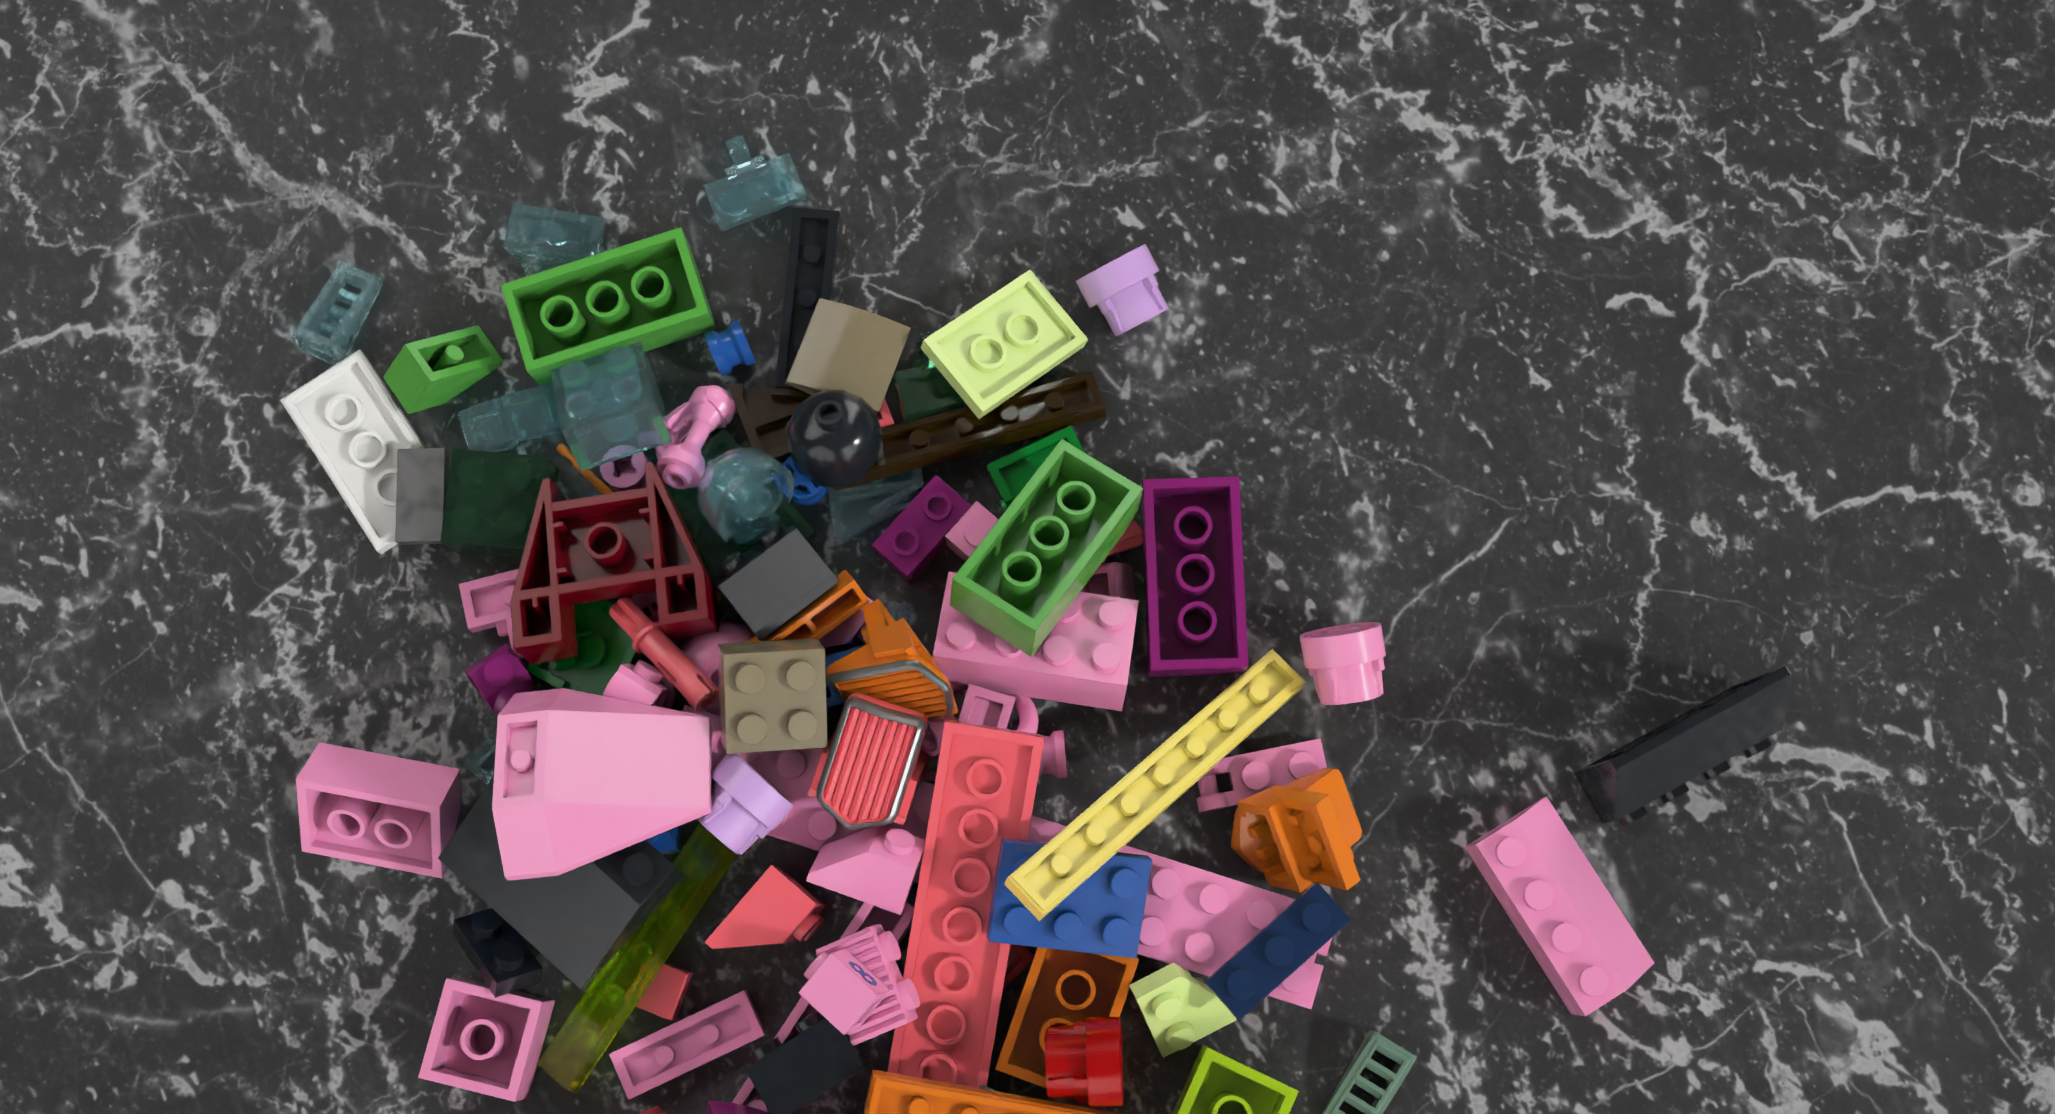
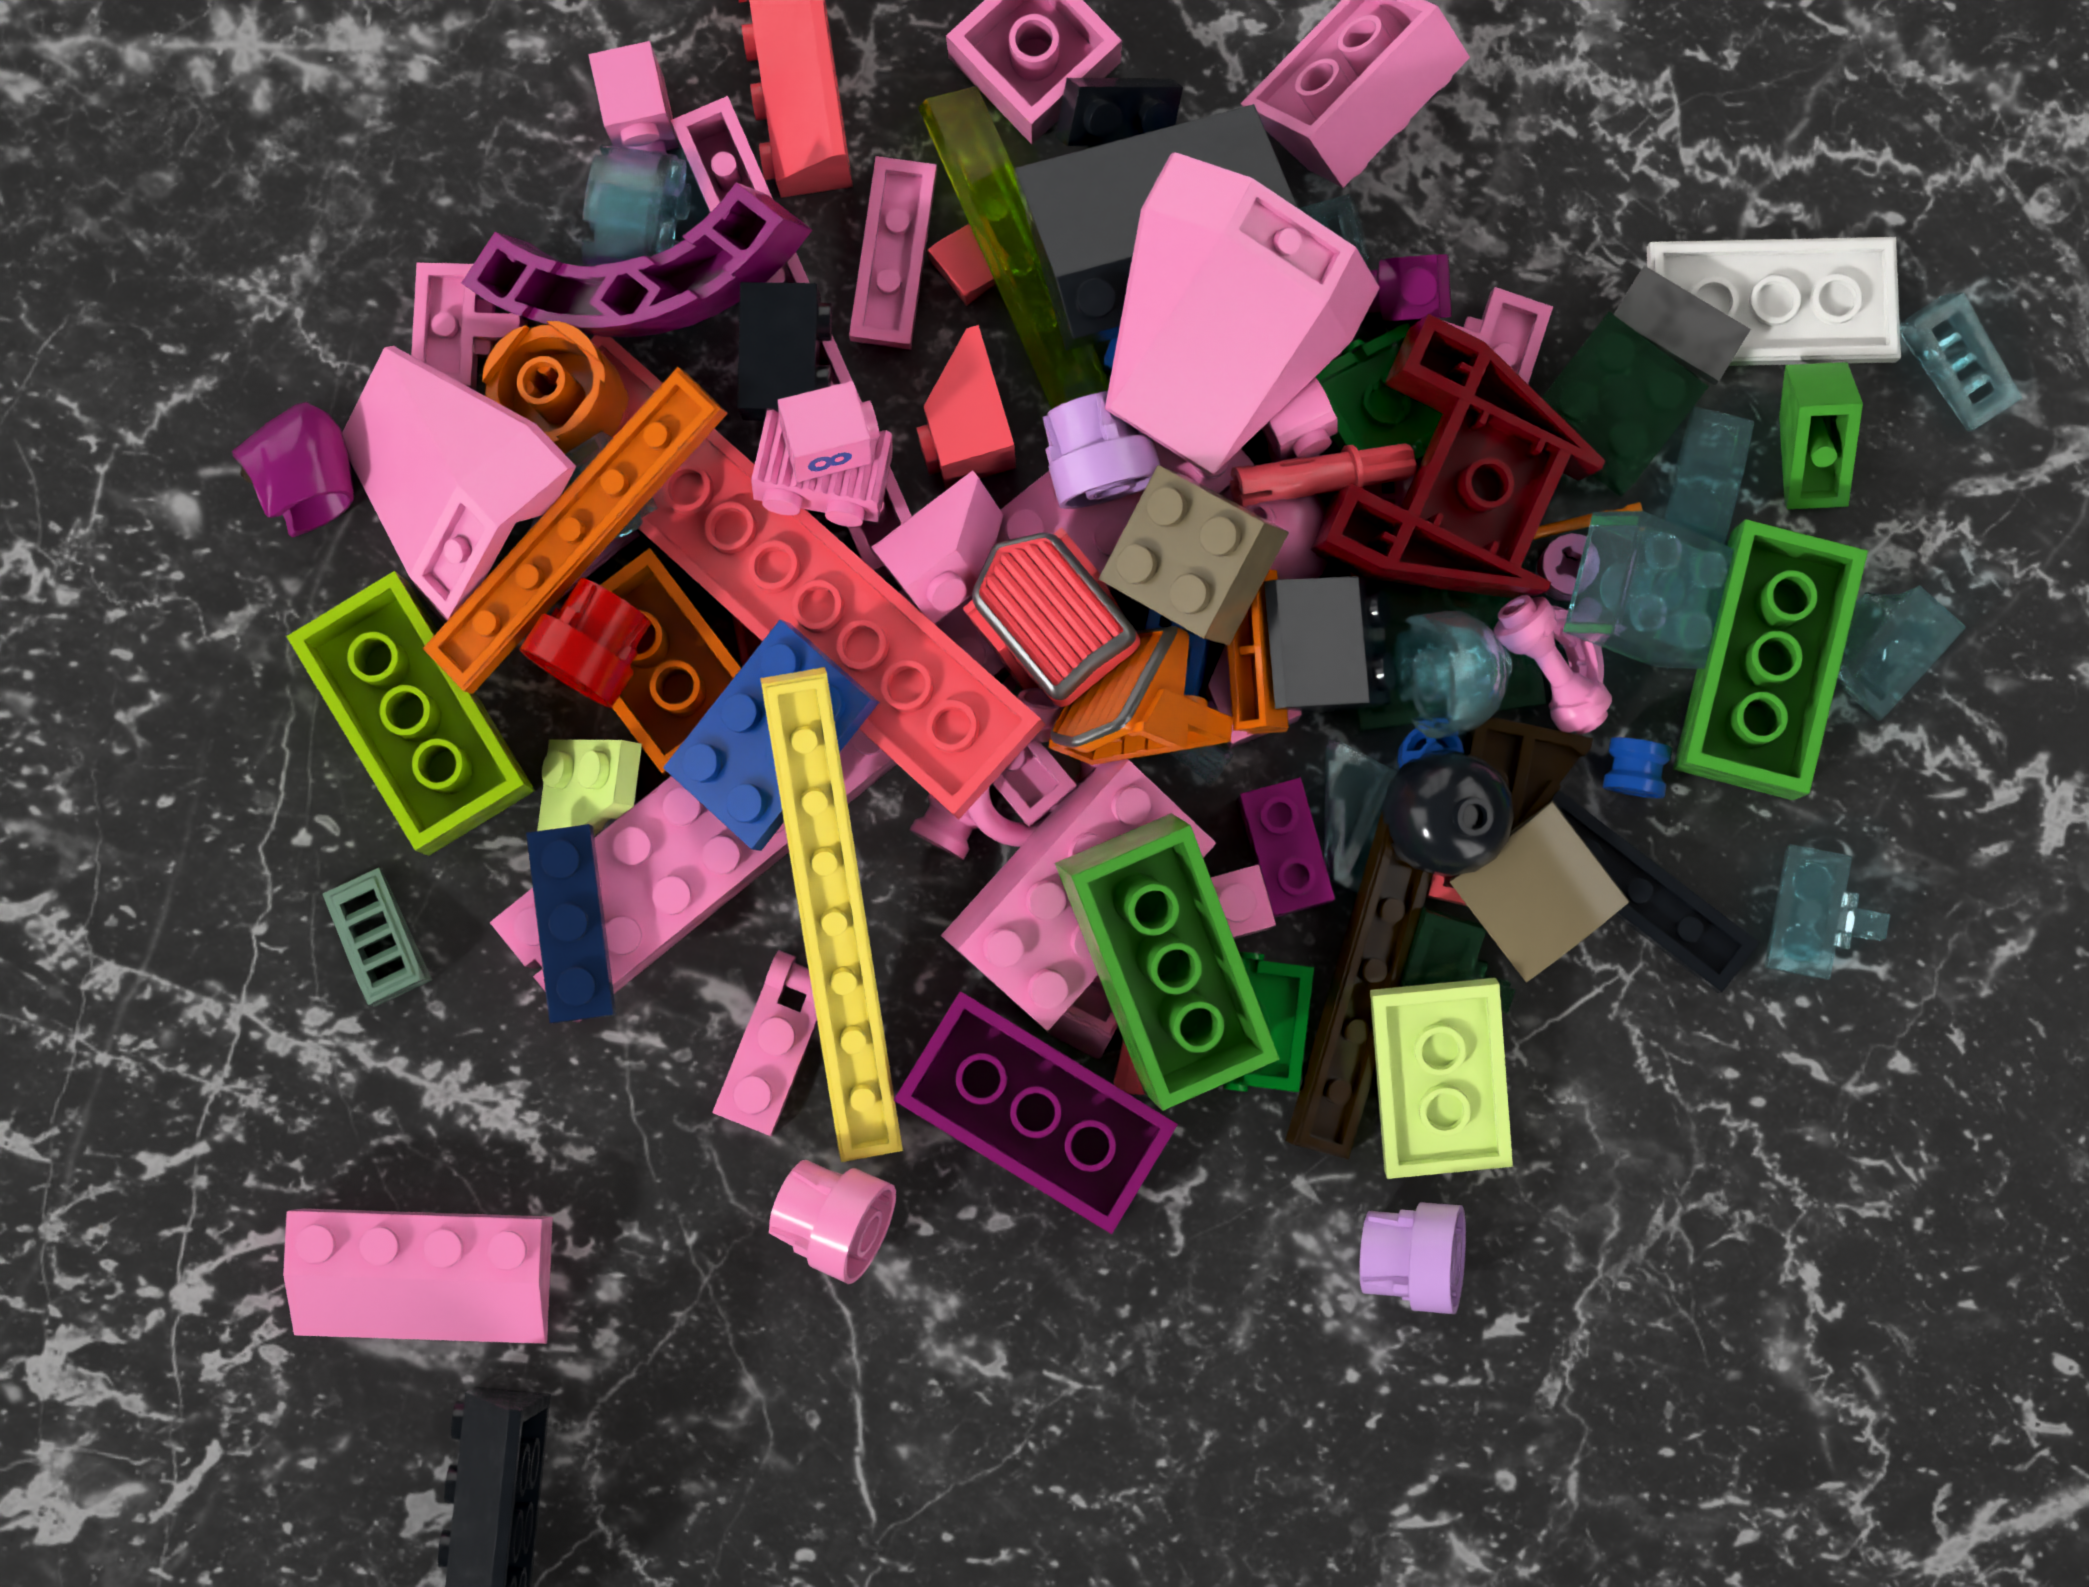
camera: 125 degrees right, 5 degrees up
(1300, 832) = (681, 1043): orange piece -> none

